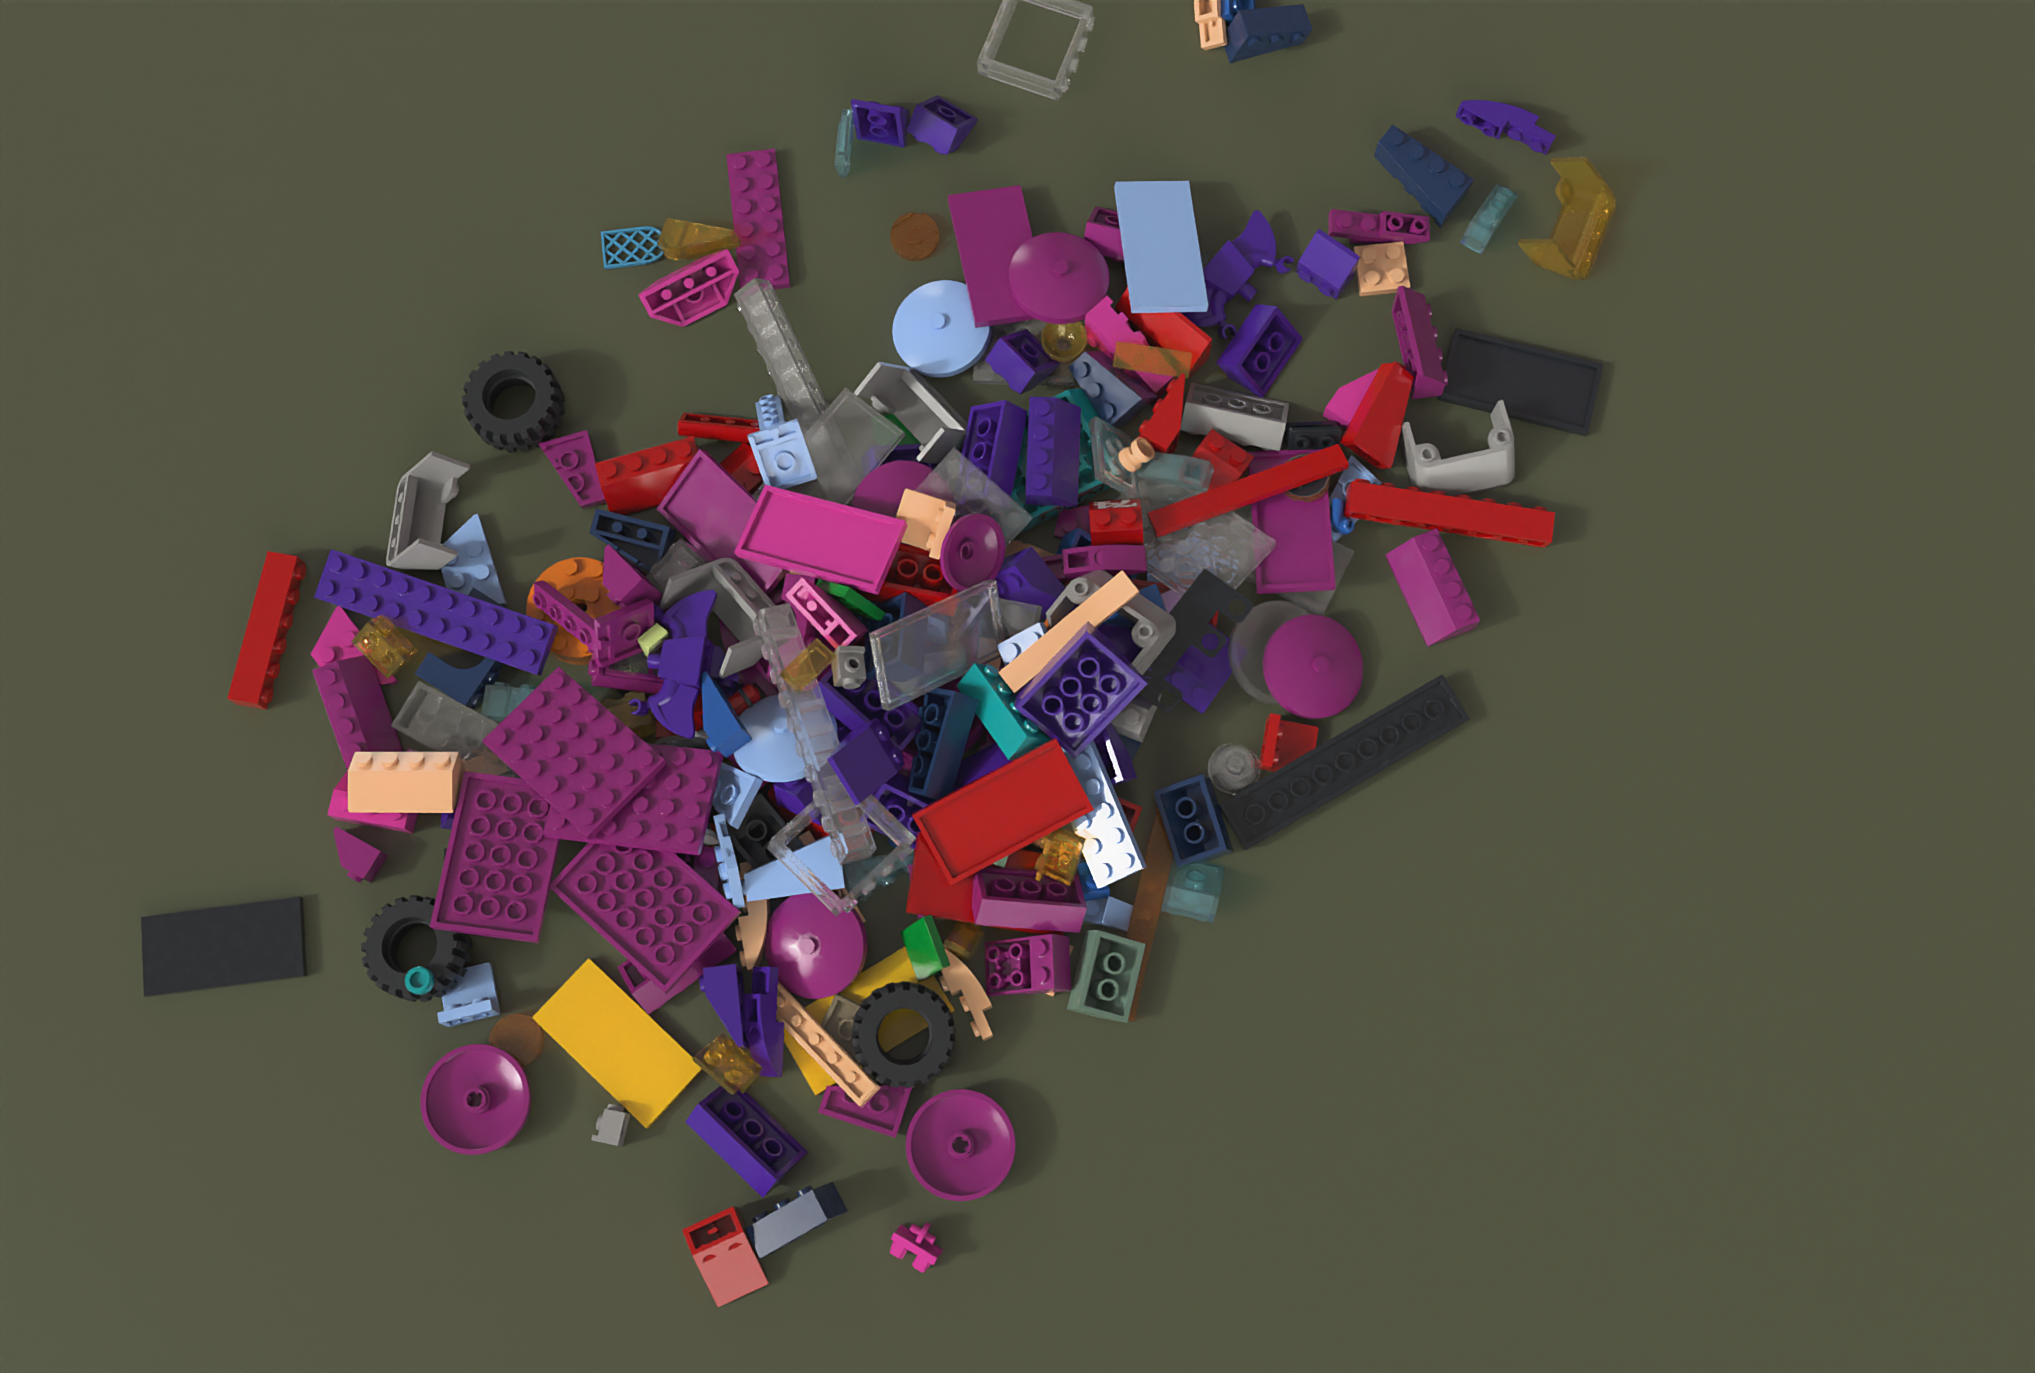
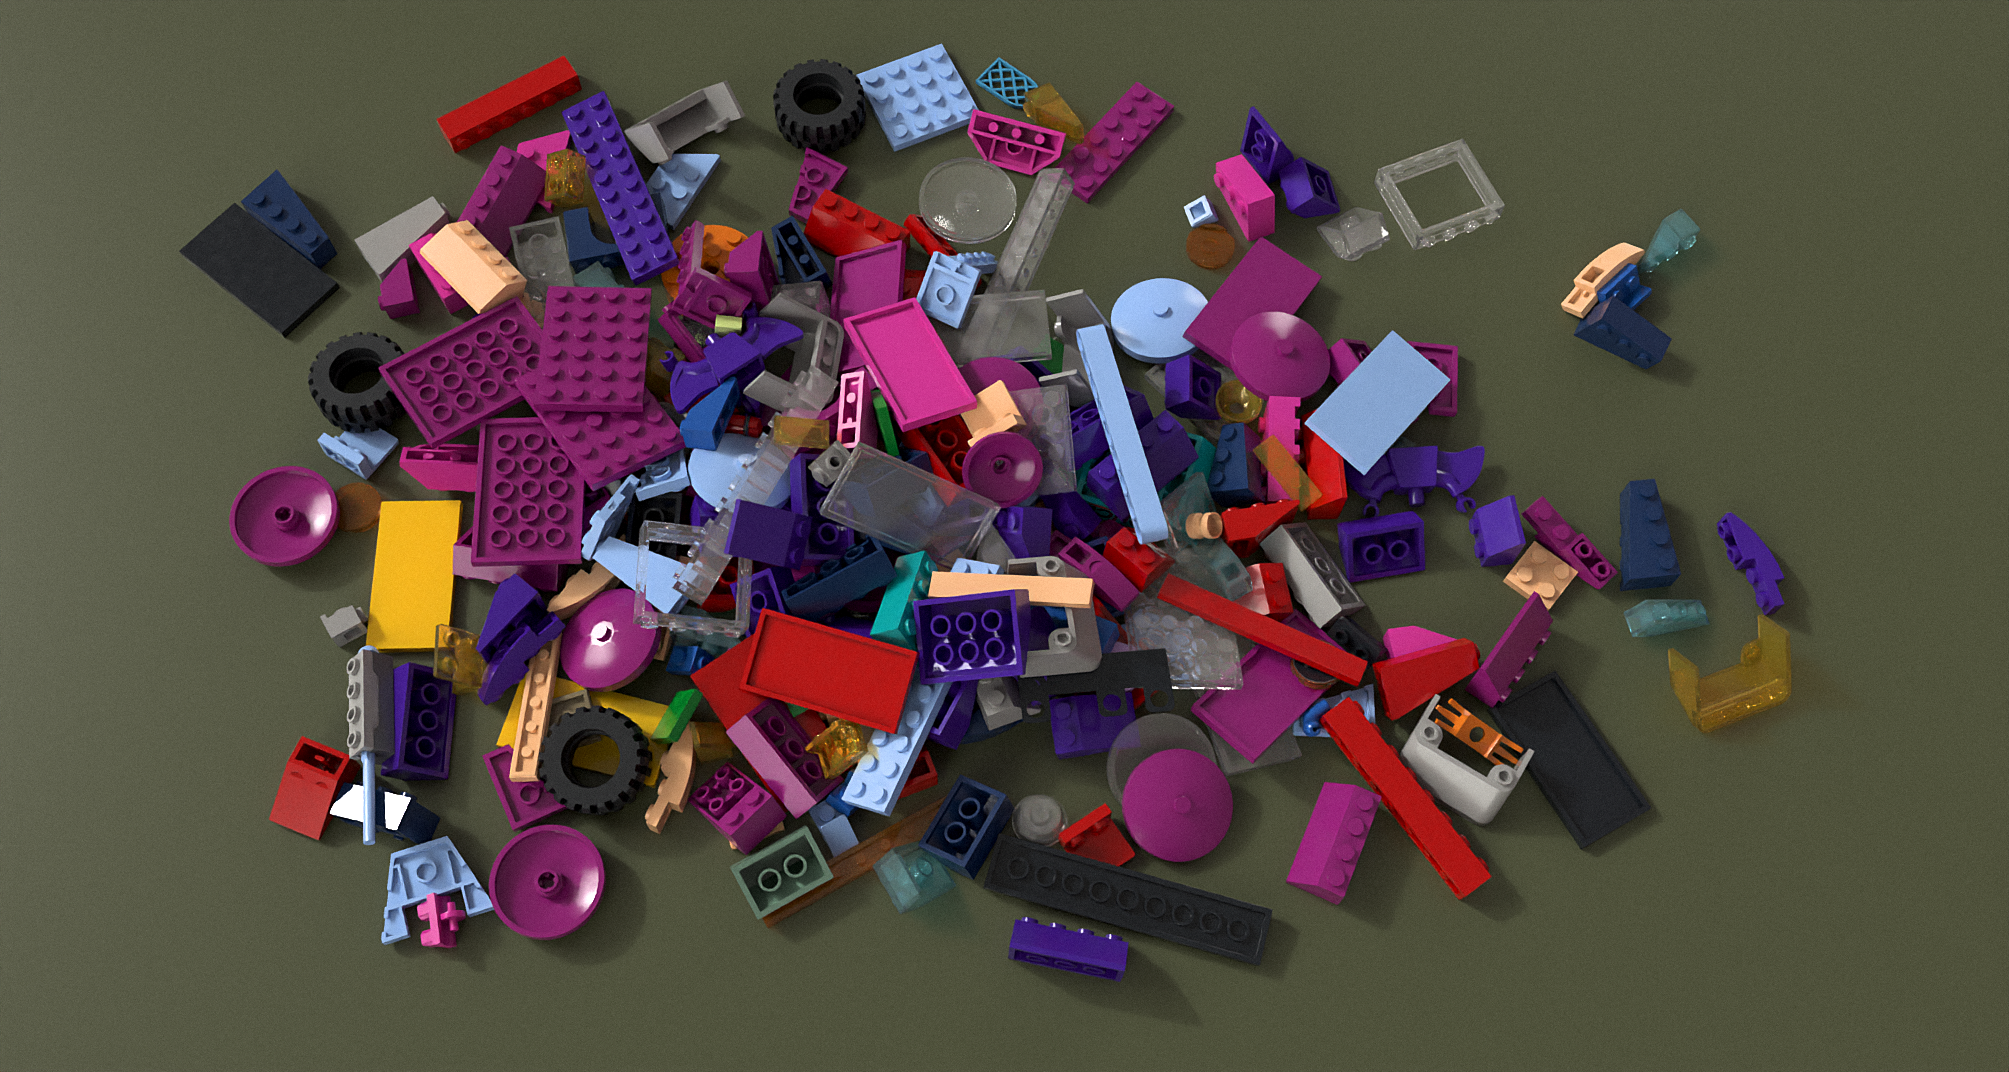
camera: 40 degrees right, 10 degrees down
(201, 886) = (285, 215): none -> dark blue wedge
(307, 826) = (390, 241): none -> light grey slope
(419, 980) = (334, 397): teal tile -> none
(561, 941) = (442, 467): none -> dark pink wedge
(575, 322) = (917, 97): none -> light blue plate
(706, 370) = (967, 200): none -> clear dish
(716, 1170) = (370, 722): none -> piece
(844, 143) = (1223, 139): clear light blue slope -> none
(868, 1230) = (423, 871): none -> light blue wing
(880, 216) = (1201, 212): none -> light blue slope
(884, 903) = (687, 660): none -> blue bracket
(903, 172) = (1247, 197): none -> dark pink wedge
(1007, 128) = (1354, 233): none -> clear slope
(1023, 444) = (1122, 434): none -> light blue beam
(1043, 534) = (1071, 514): none -> dark purple slope
(1166, 168) = (1446, 360): none -> magenta wing
(1343, 832) = (1068, 950): none -> dark purple slope
(1463, 420) = (1487, 744): none -> orange piece

